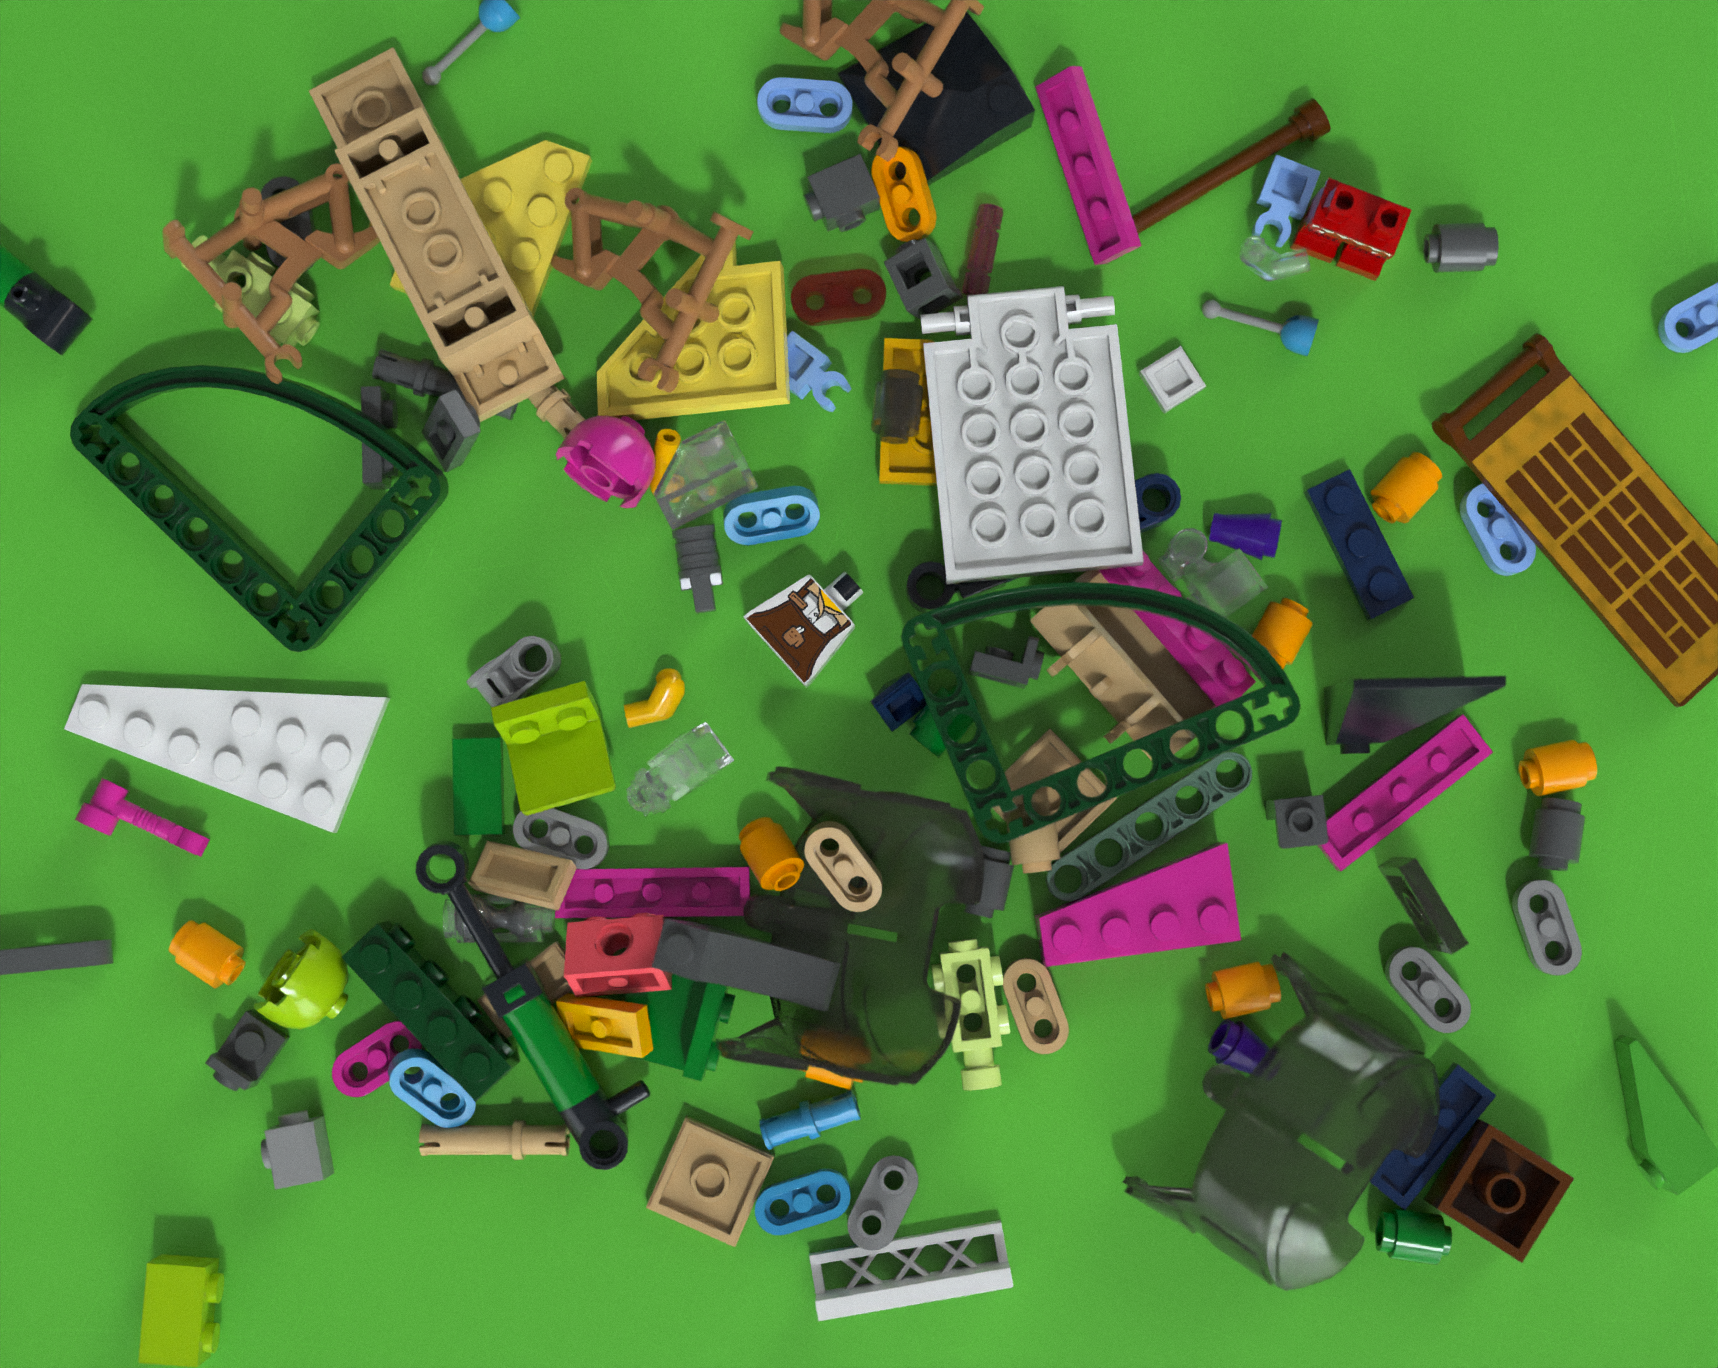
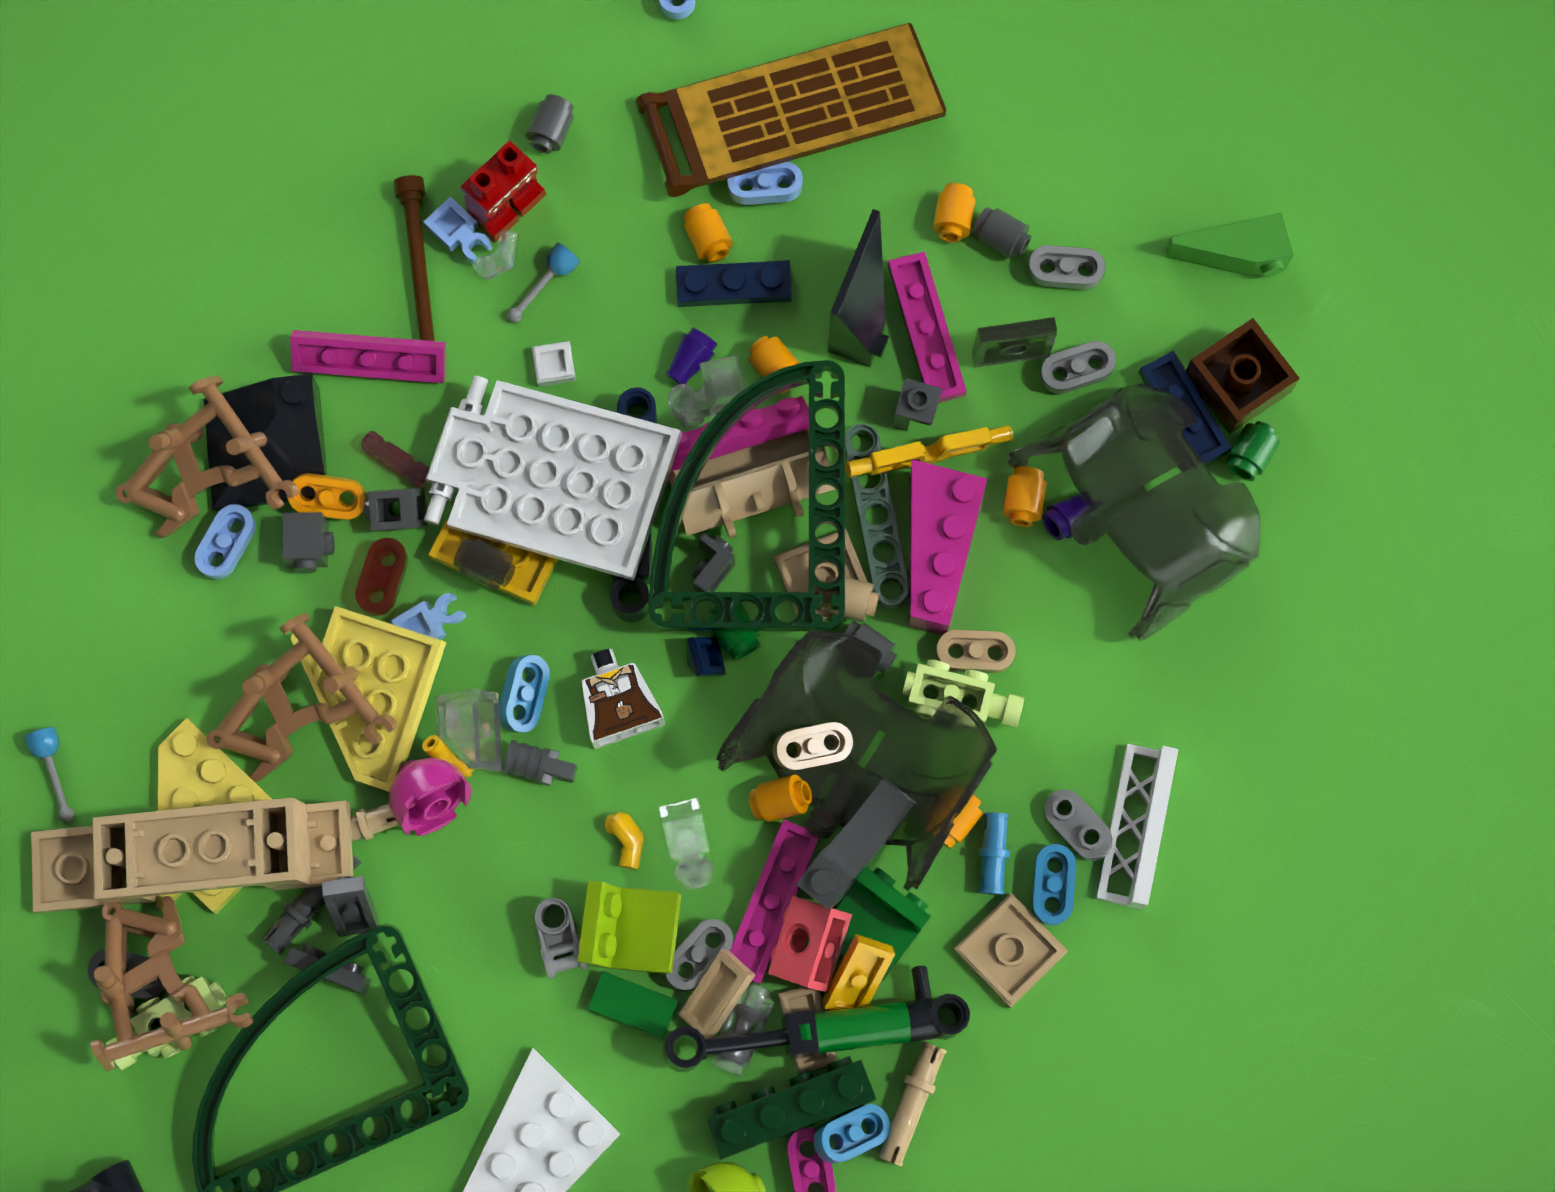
camera: 70 degrees left, 10 degrees down
(1241, 849) = (942, 449): none -> yellow piece

